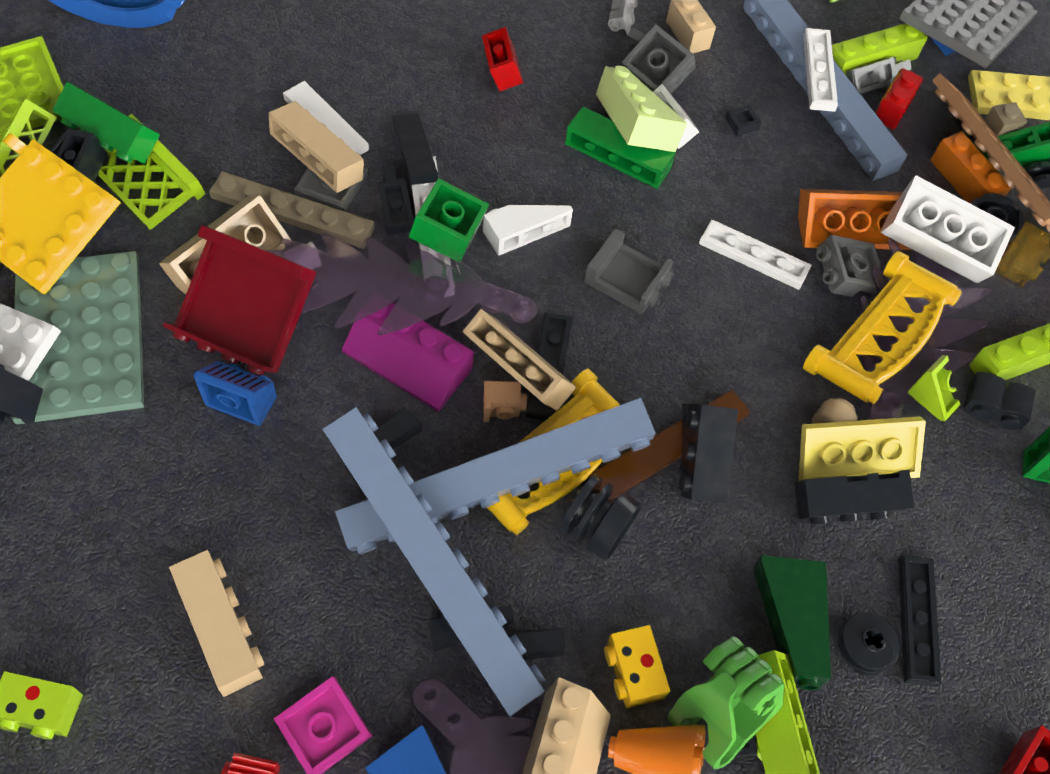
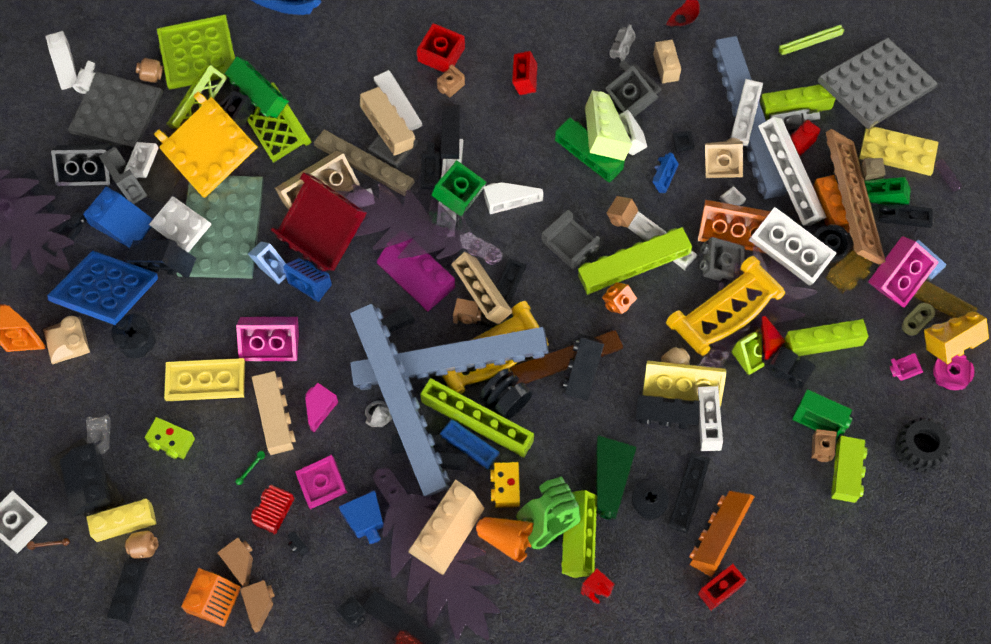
camera: 20 degrees right, 5 degrees up
(84, 587) = (205, 379): none -> light yellow plate
(167, 375) = (268, 261): none -> light blue slope
(185, 499) = (268, 338): none -> dark pink slope
(206, 701) = (260, 455): none -> green hinge
(294, 592) = (319, 405): none -> dark pink slope
(374, 42) = (440, 48): none -> red brick
(398, 84) = (451, 81): none -> medium nougat brick
(404, 591) = (380, 416): none -> light grey piece
(558, 609) = (469, 444): none -> blue plate
(563, 564) = (477, 417): none -> lime brick
(692, 221) = (622, 211): none -> medium nougat brick
(725, 341) = (619, 298): none -> orange brick
(730, 285) = (634, 260): none -> lime brick
(731, 162) = (665, 172): none -> blue plate
(811, 131) = (724, 159): none -> tan slope
(833, 181) = (732, 197): none -> white tile
(907, 130) = (792, 171): none -> white brick
(930, 519) = (710, 419): none -> white slope
(959, 362) = (770, 337): none -> red slope
(999, 675) = (721, 532): none -> orange slope

